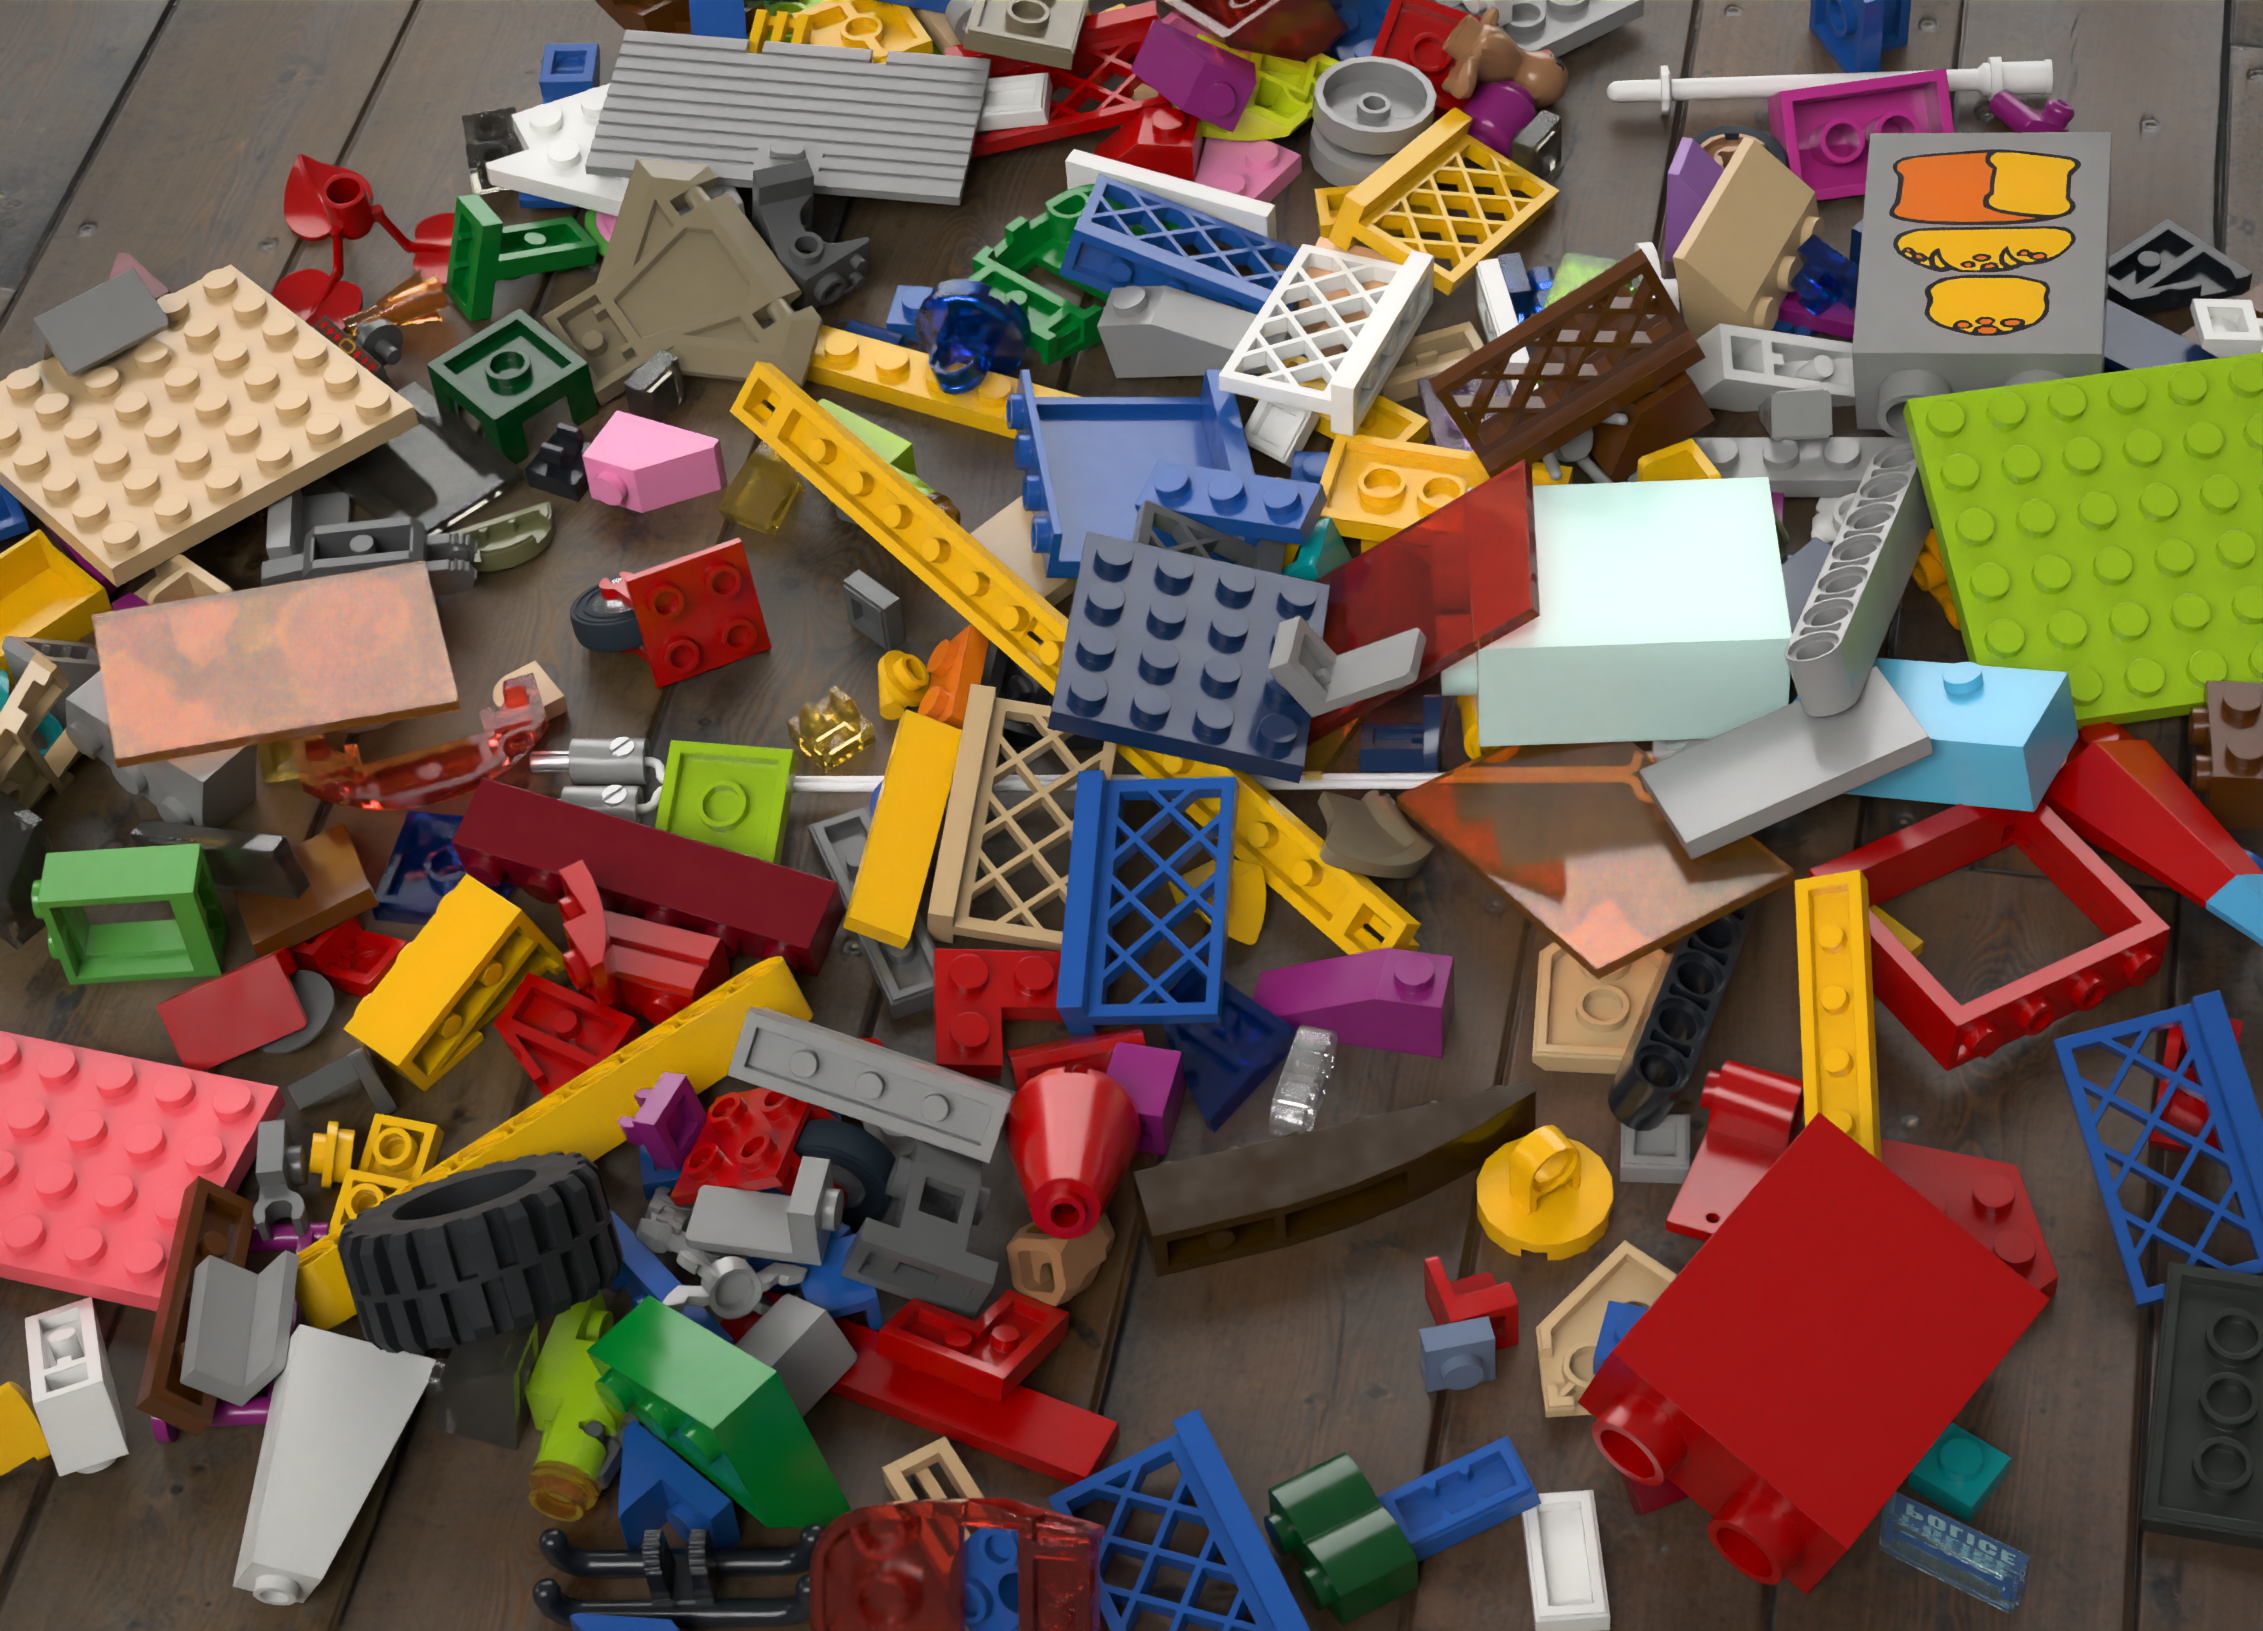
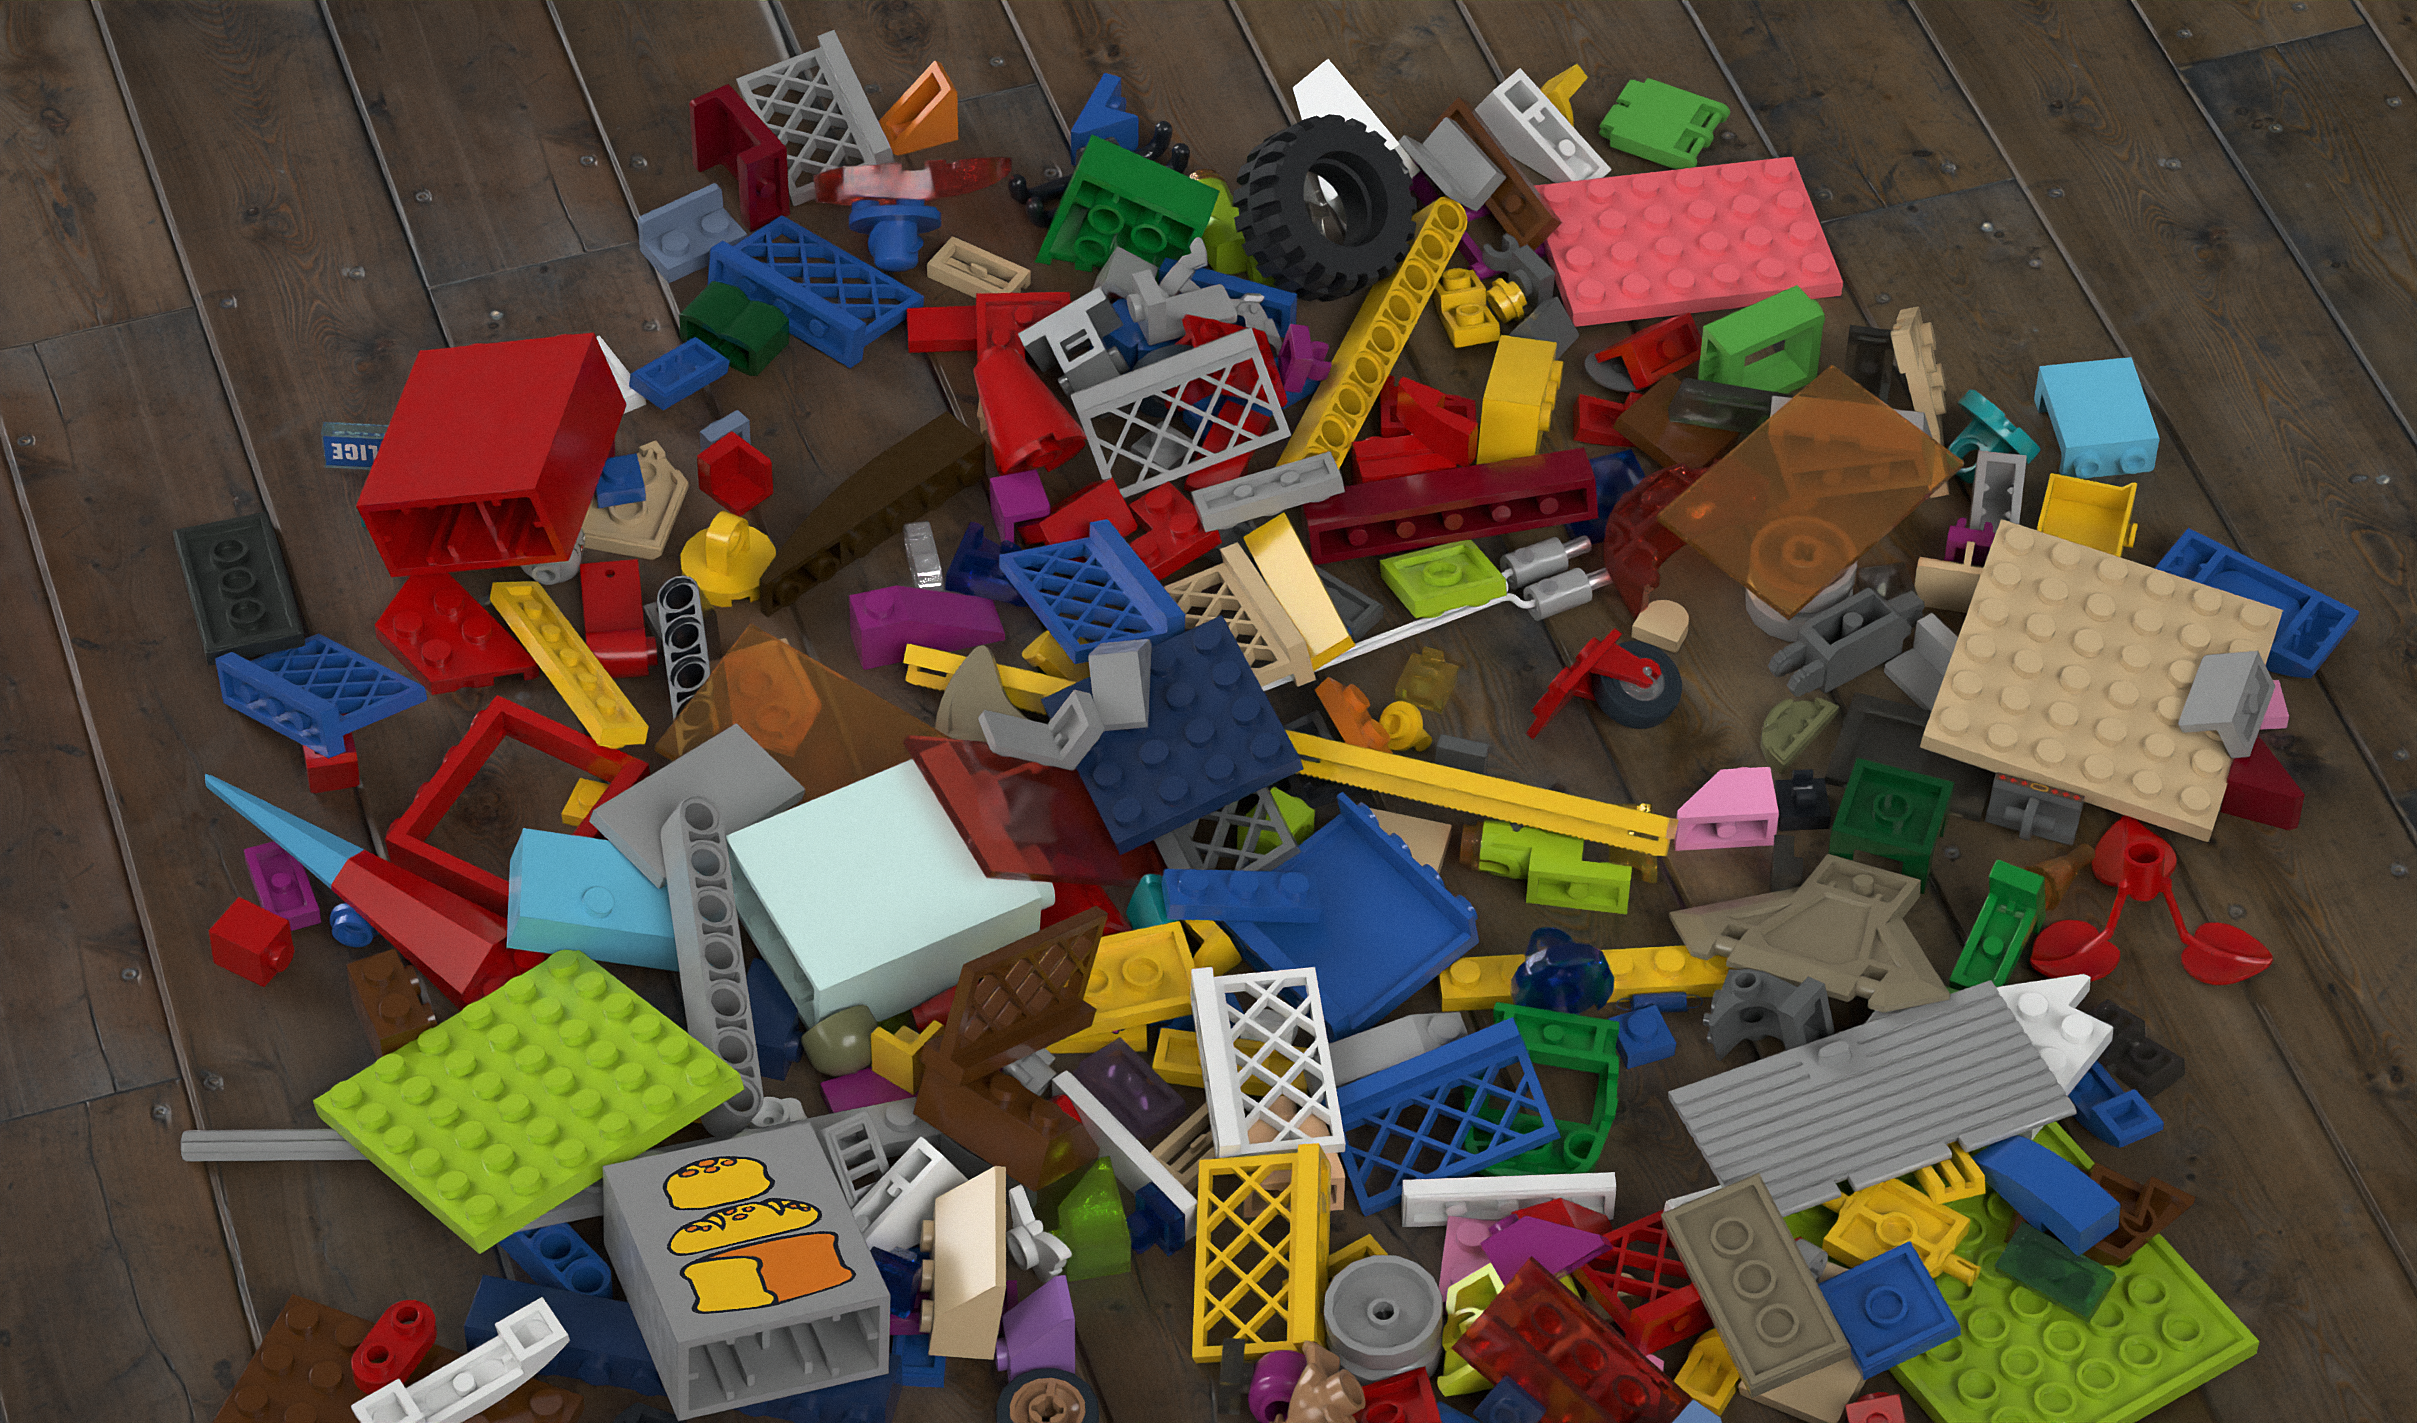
camera: 145 degrees right, 0 degrees up
(851, 938) = (1268, 492): none -> light grey plate
(1210, 691) = (1121, 683): none -> light grey slope

